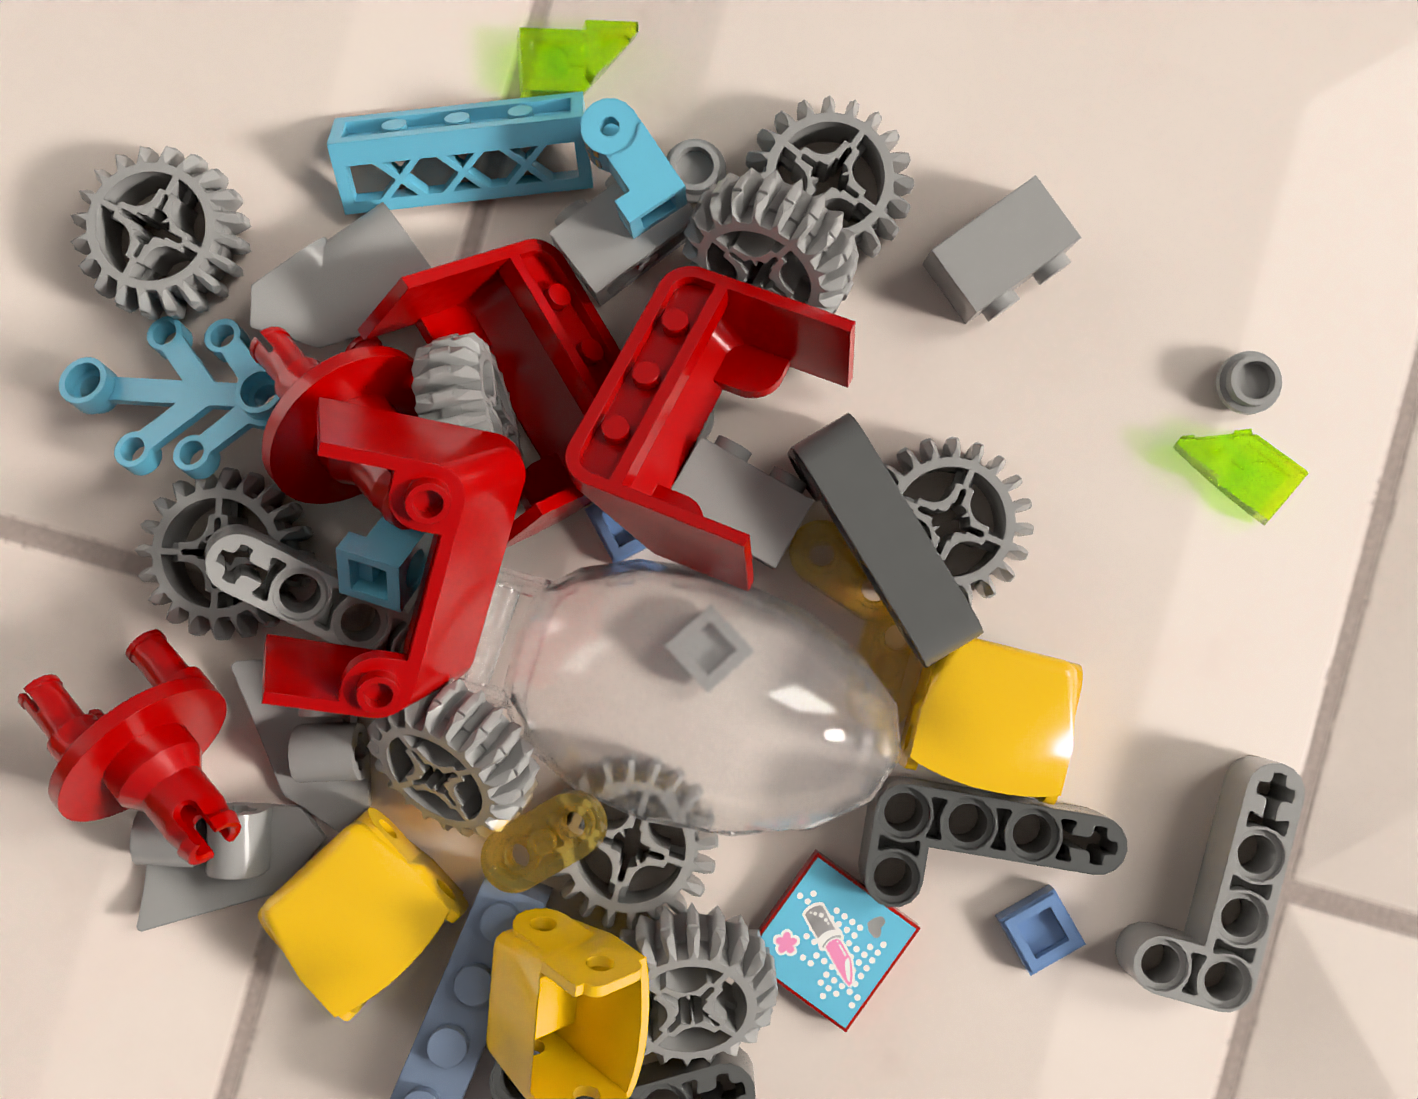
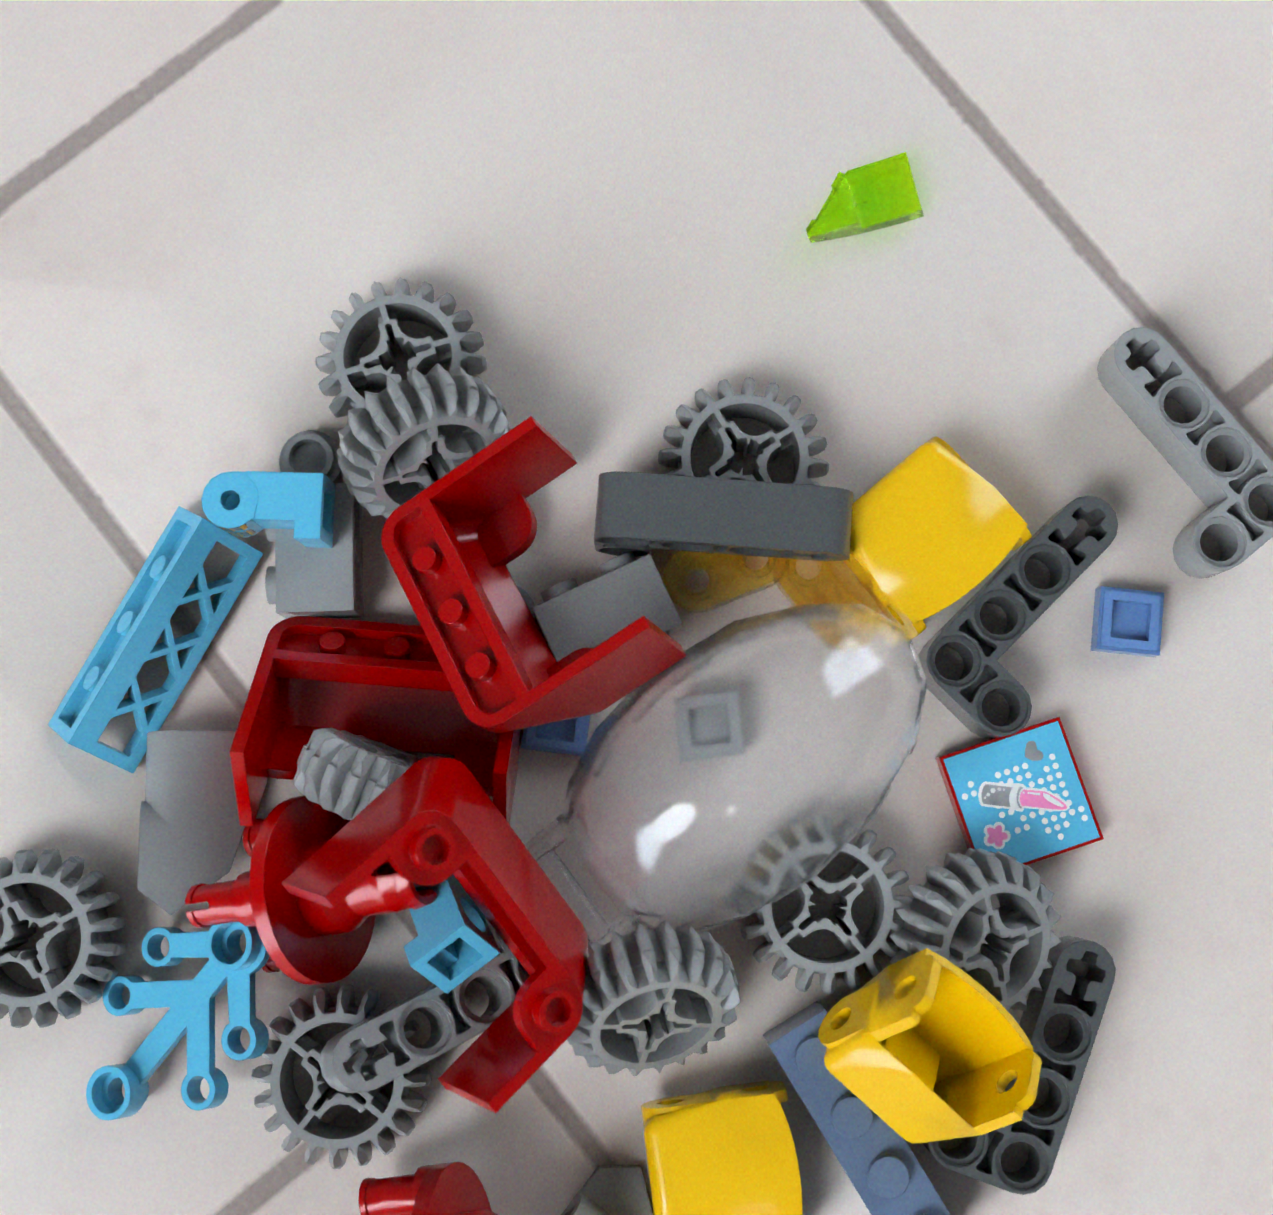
camera: 55 degrees left, 5 degrees down
(314, 754) = (553, 1121): light grey panel -> none
(547, 840) = (772, 969): clear yellow plate -> none
(569, 58) = (143, 499): clear neon green slope -> none
(1001, 250) = (557, 265): light grey brick -> none
(1249, 382) = (801, 148): light grey plate -> none

